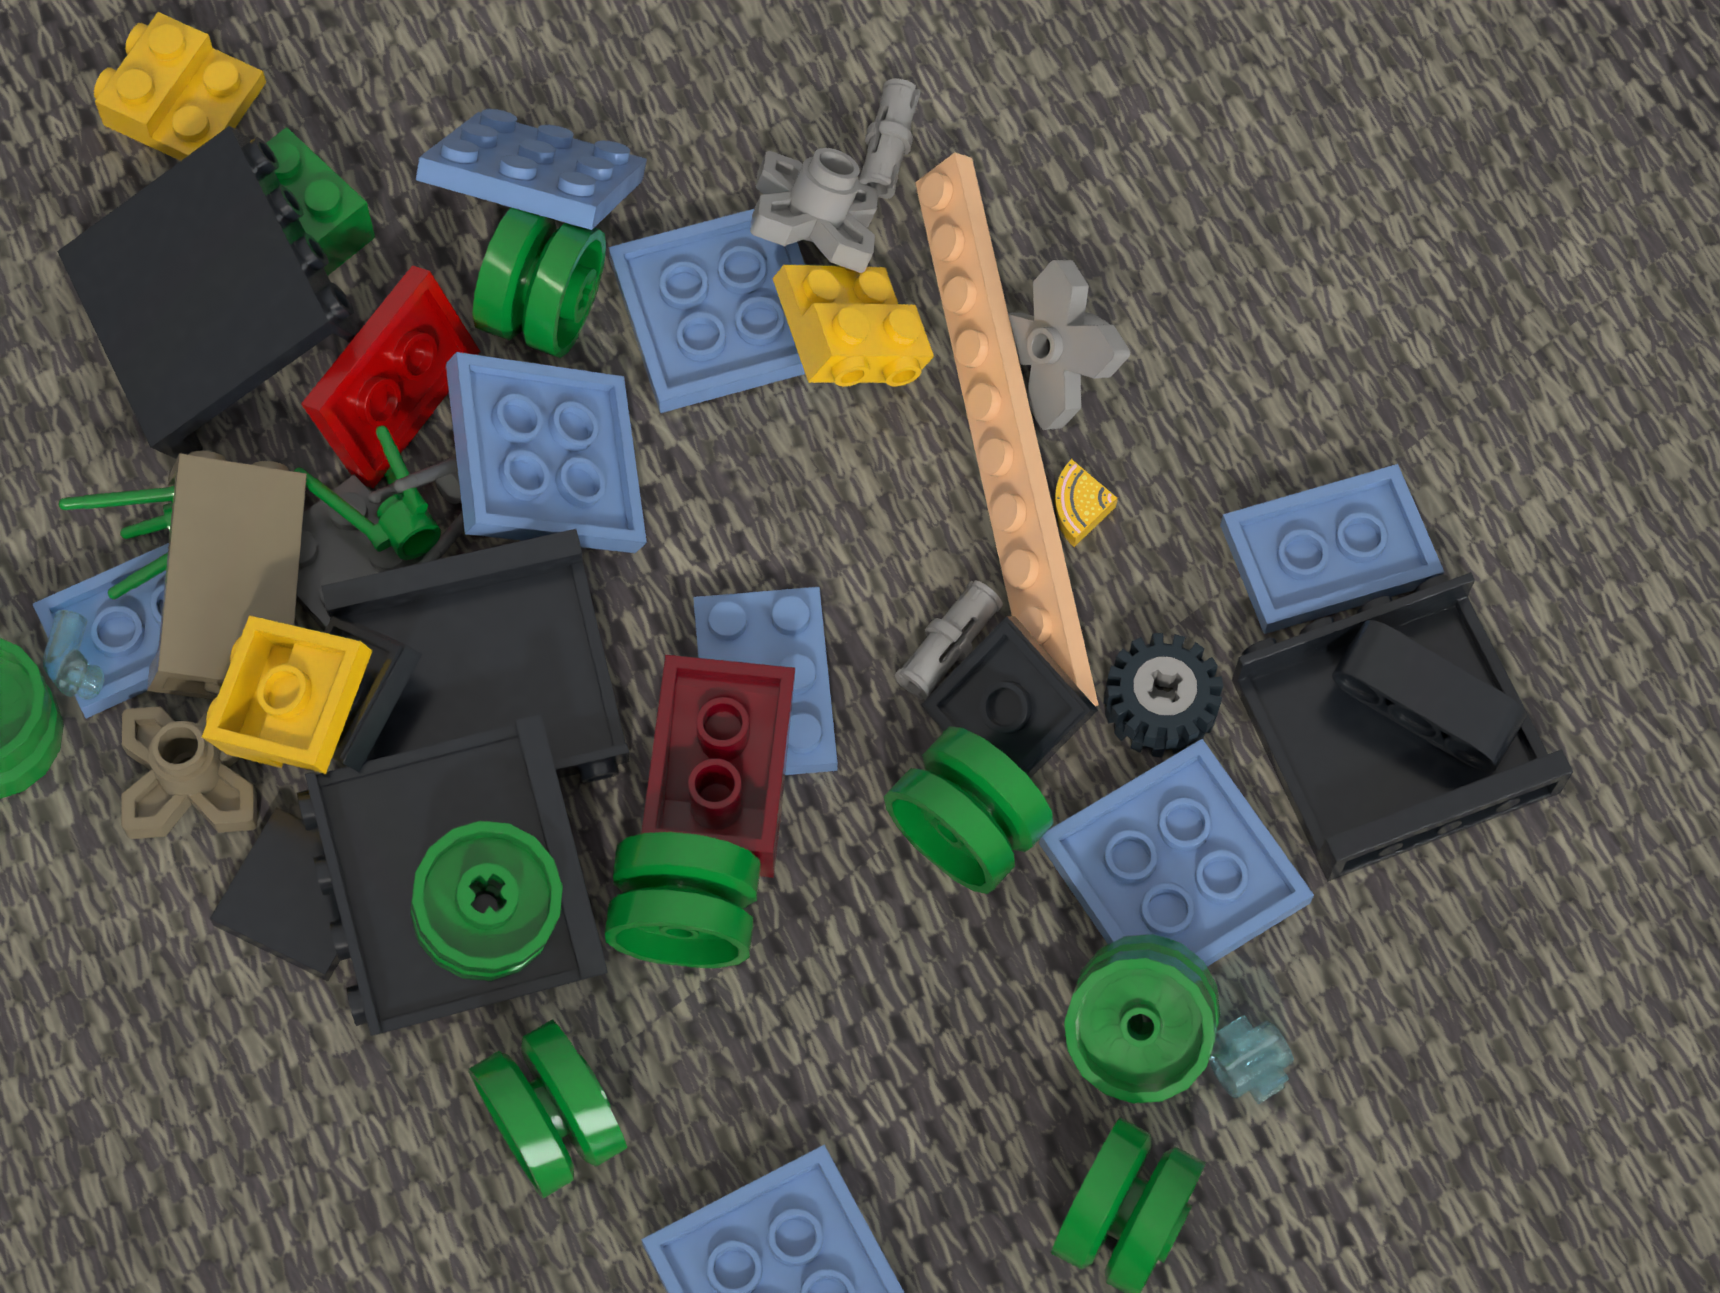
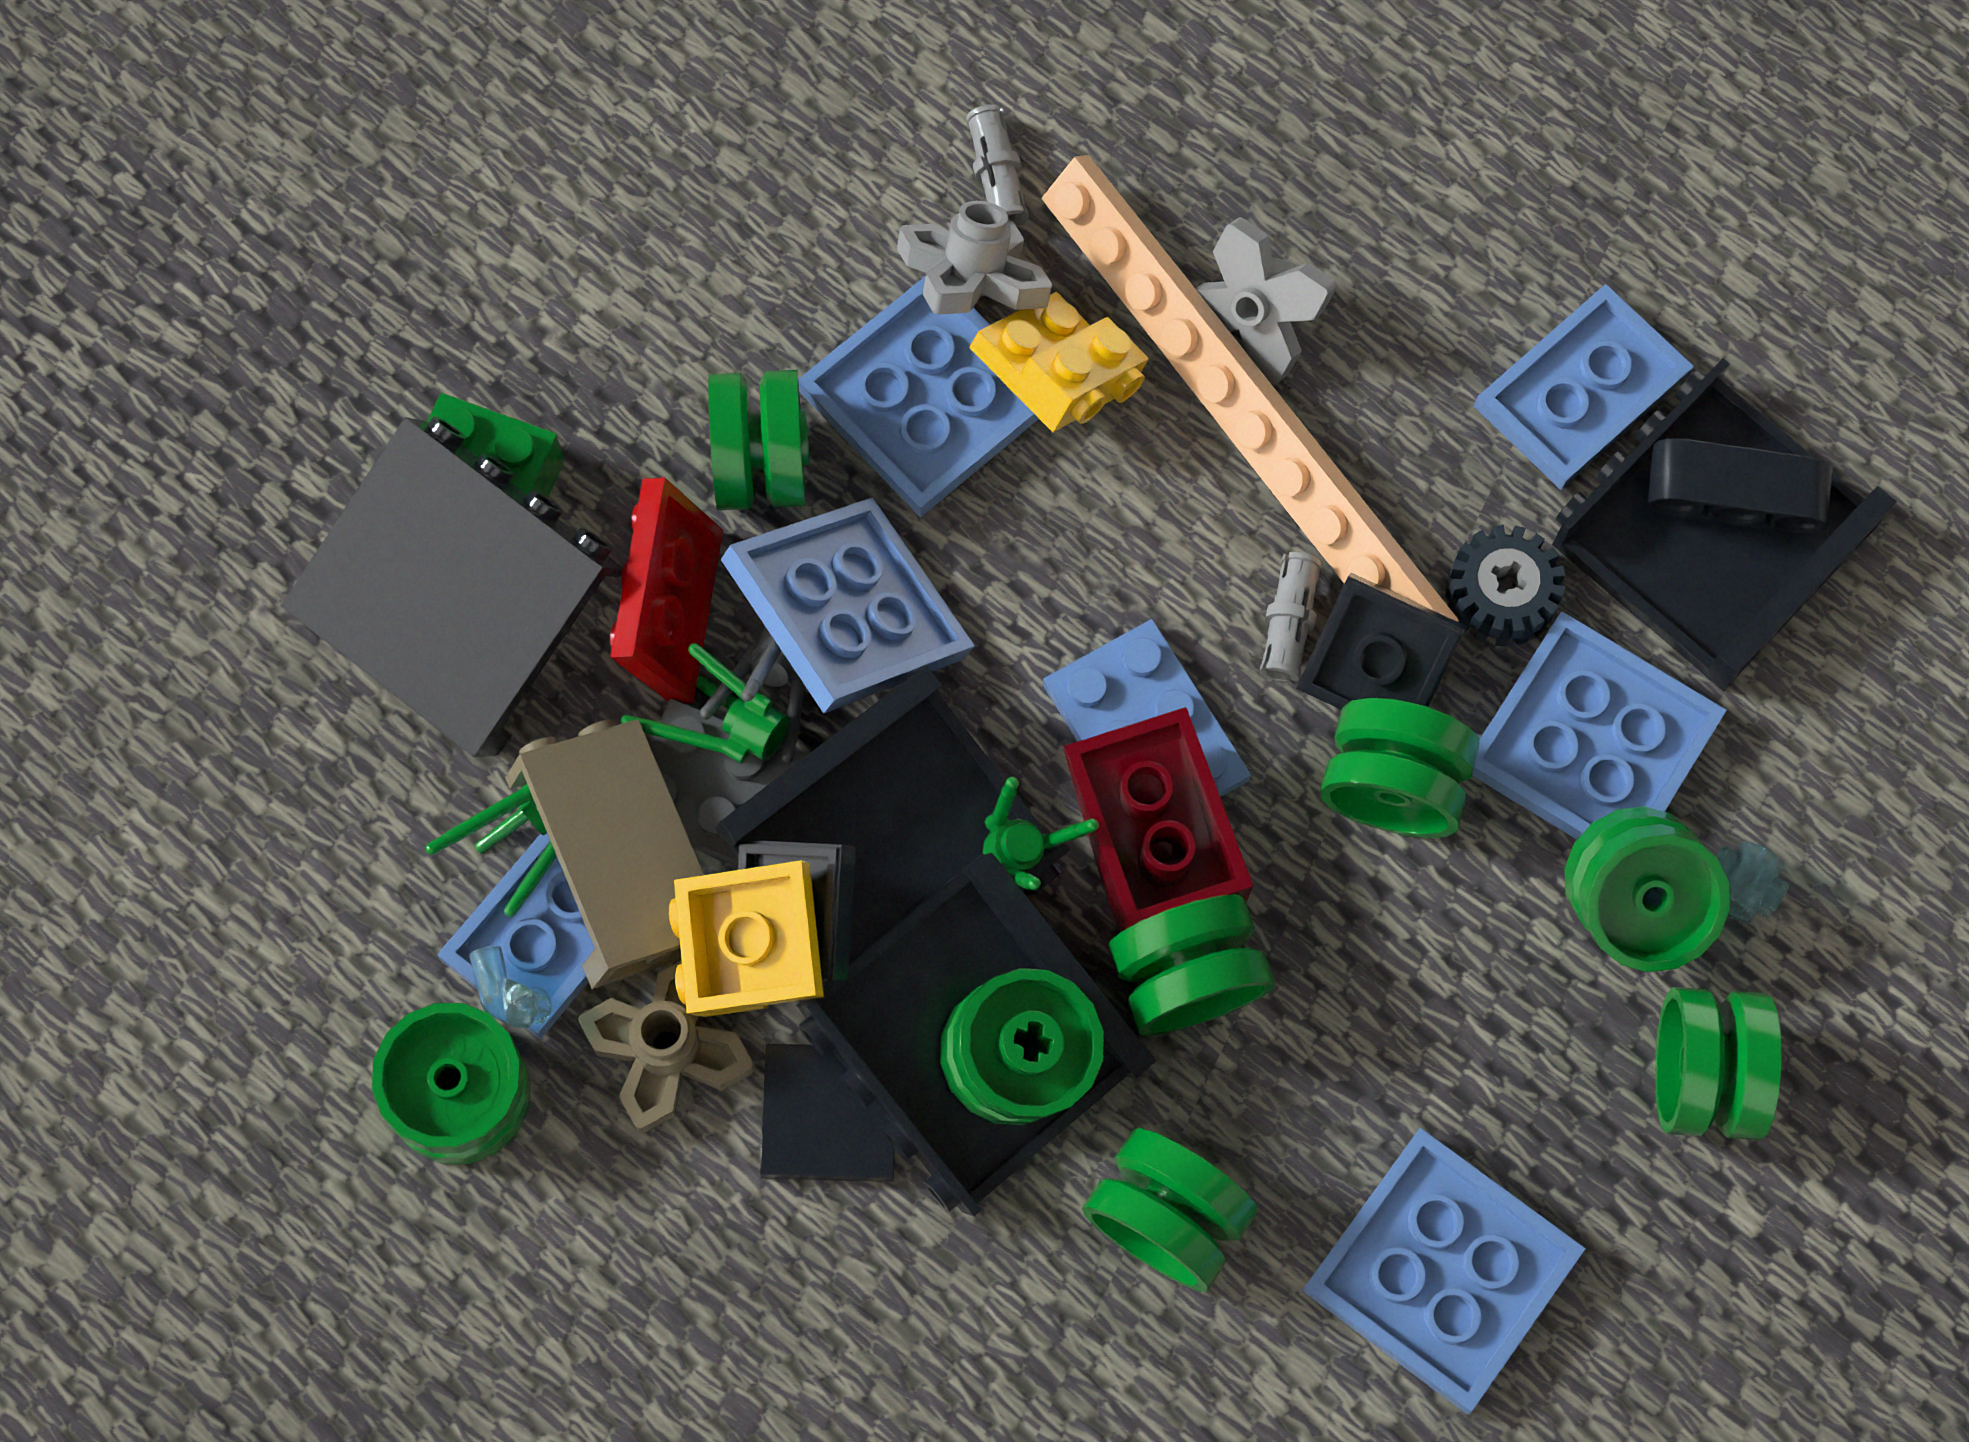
camera: 25 degrees left, 5 degrees up
(175, 88) = (303, 399): yellow plate -> none
(533, 168) = (695, 335): medium blue plate -> none
(584, 724) = (1020, 843): none -> green plant
(1080, 502) = (1341, 436): yellow tile -> none

